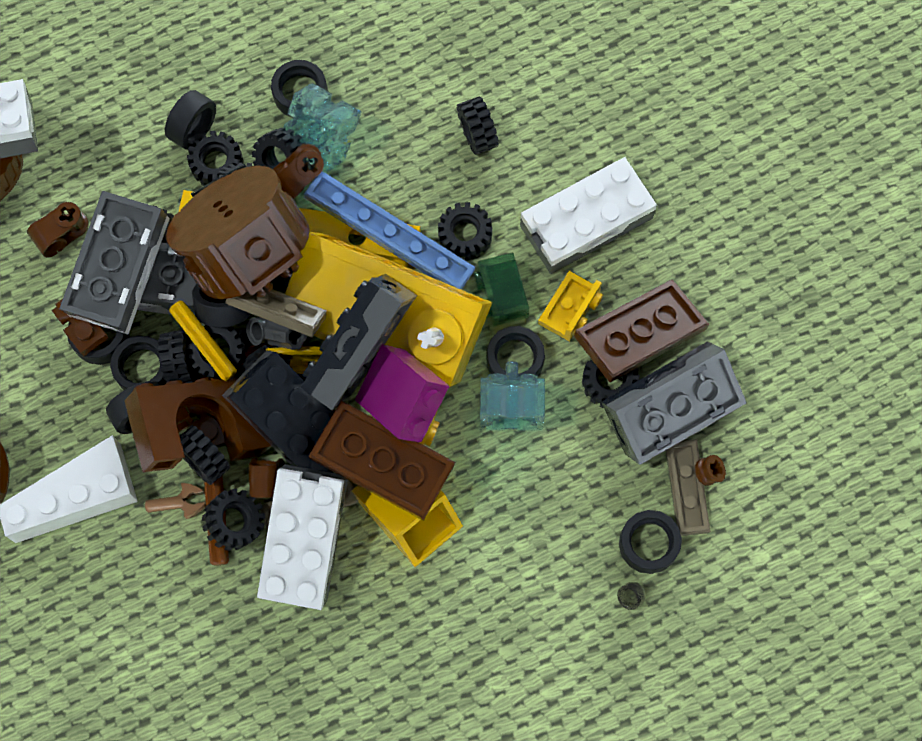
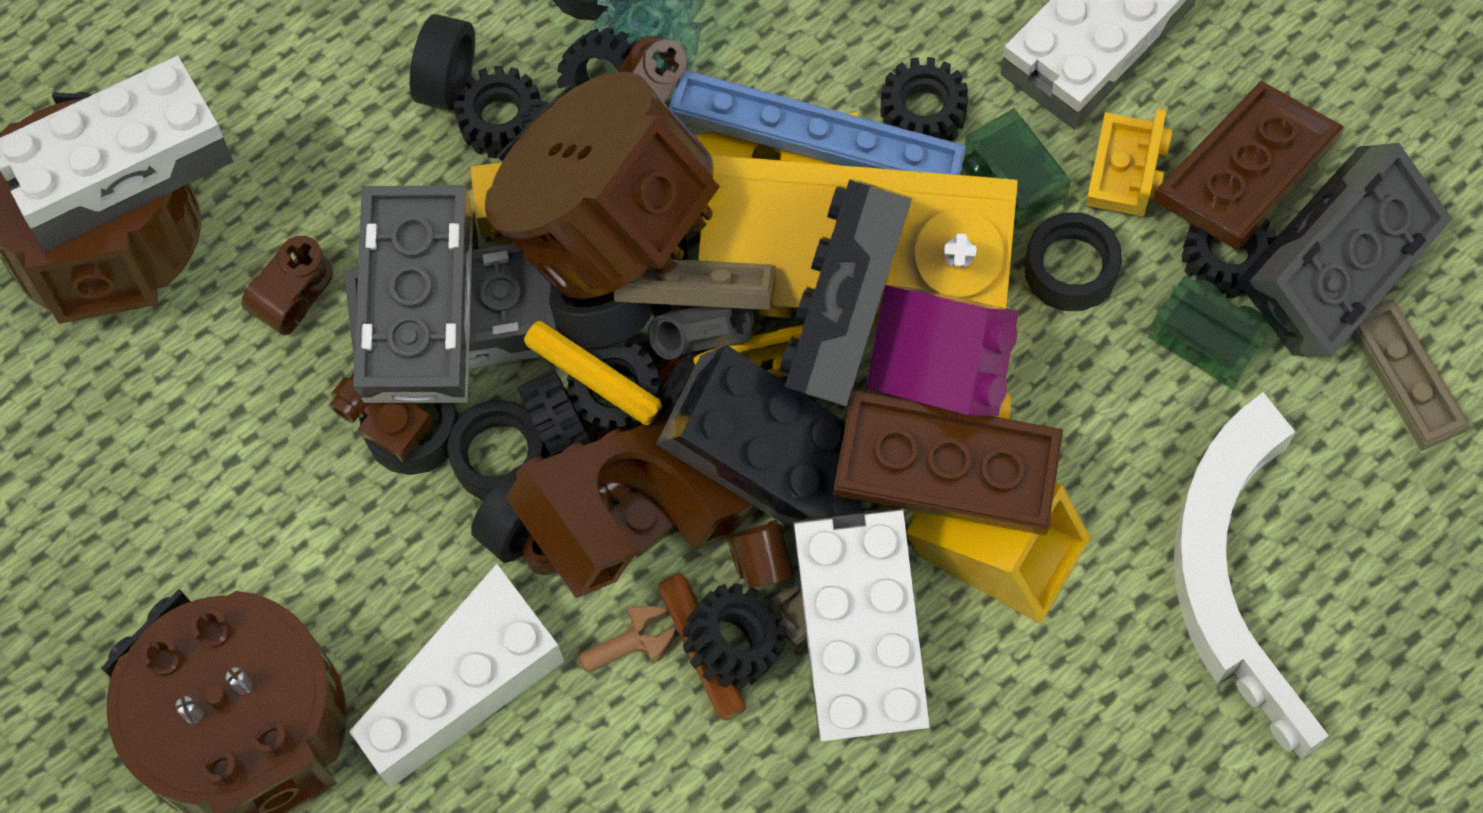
camera: 15 degrees left, 5 degrees down
(203, 455) = (664, 552): black tyre -> none
(512, 402) = (1101, 325): clear light blue brick -> none
(549, 515) = (1202, 577): none -> white arch
(579, 425) = (1210, 331): none -> clear green brick
(626, 601) = (1403, 563): clear smoke hinge -> none
(661, 520) = (1407, 438): black tyre -> none
(710, 470) = (1433, 336): reddish brown bush -> none

